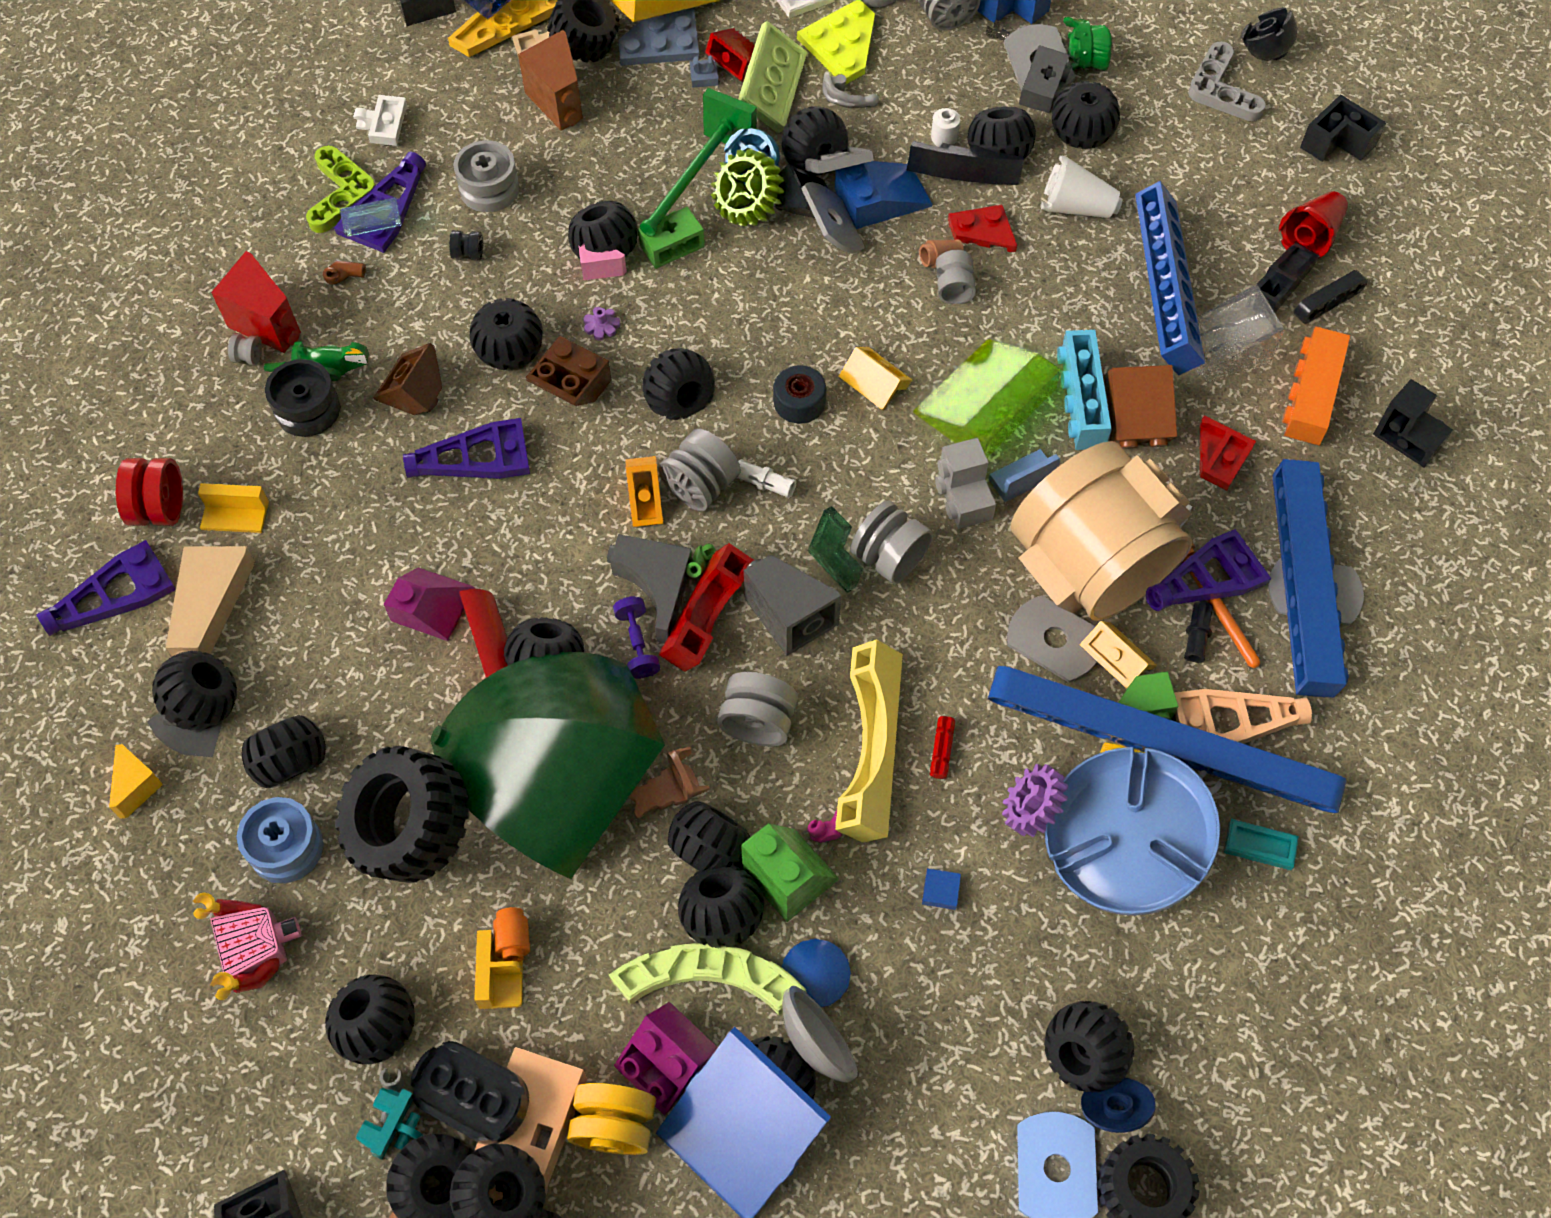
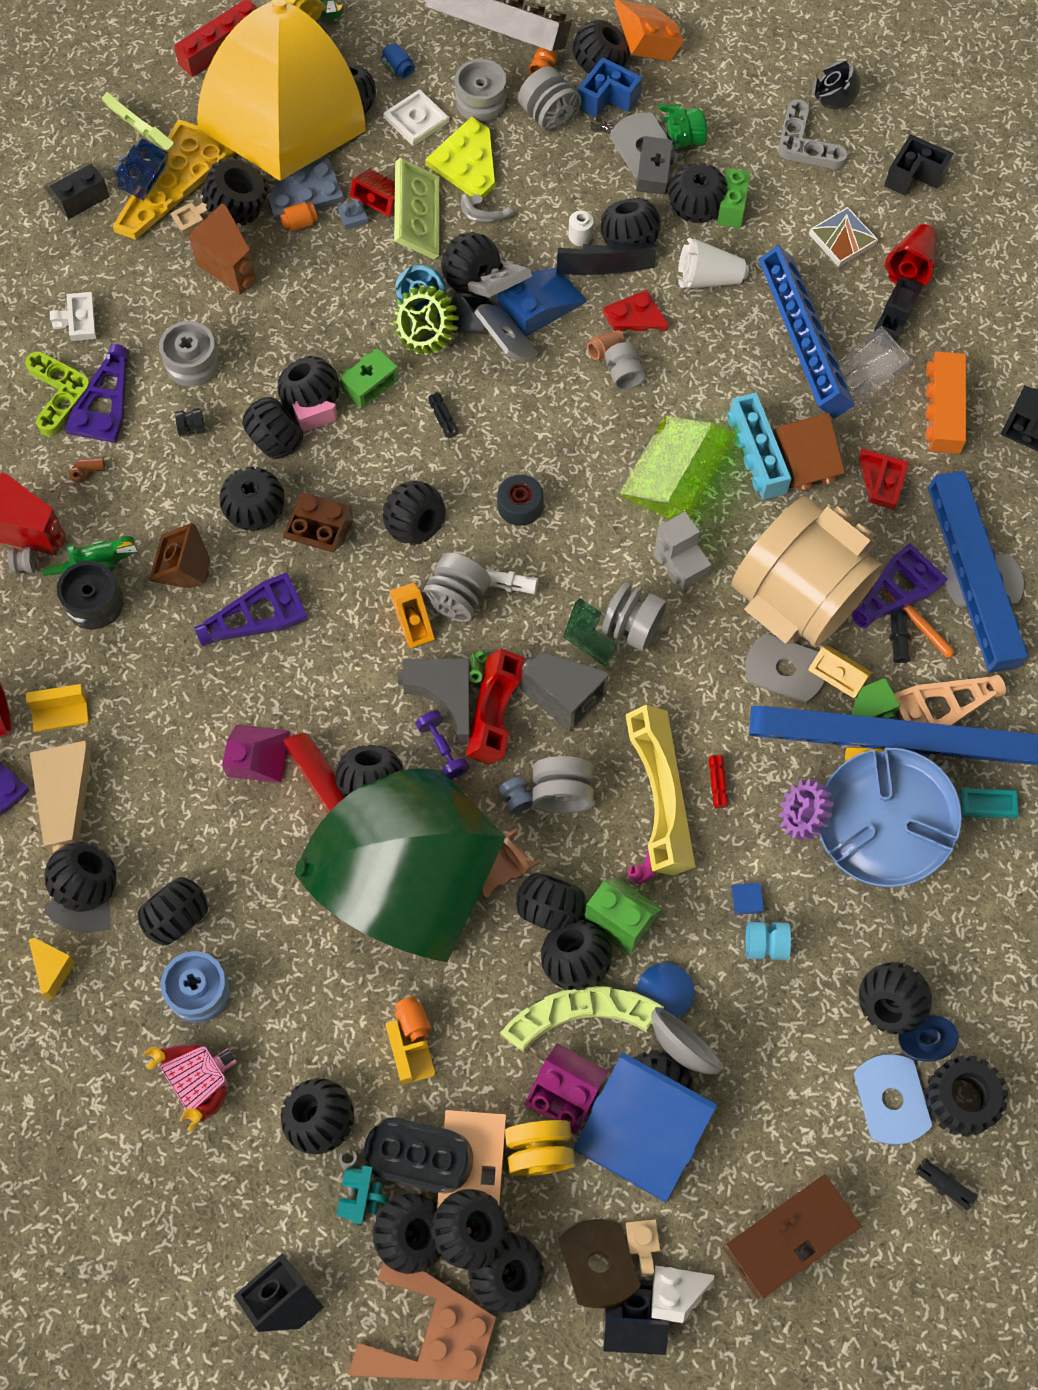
camera: 15 degrees left, 5 degrees up
(370, 217) = (97, 413): clear light blue tile -> none
(371, 805) = (265, 948): black tyre -> none
(551, 267) = (272, 428): none -> black wheel
(601, 323) = (329, 469): medium lavender plant -> none
(645, 63) = (298, 216): none -> orange brick
(704, 710) = (516, 795): none -> sand blue wheel
(721, 119) = (384, 259): green tile -> none
(741, 291) = (443, 415): none -> black axle
(873, 376) = (578, 470): panel -> none
(951, 942) = (768, 940): none -> medium azure wheel
(1023, 474) = (725, 531): medium blue panel -> none
(1123, 132) = (734, 201): none -> bright green brick
(1239, 191) = (843, 237): none -> tile
(1330, 296) = (940, 319): black beam -> none

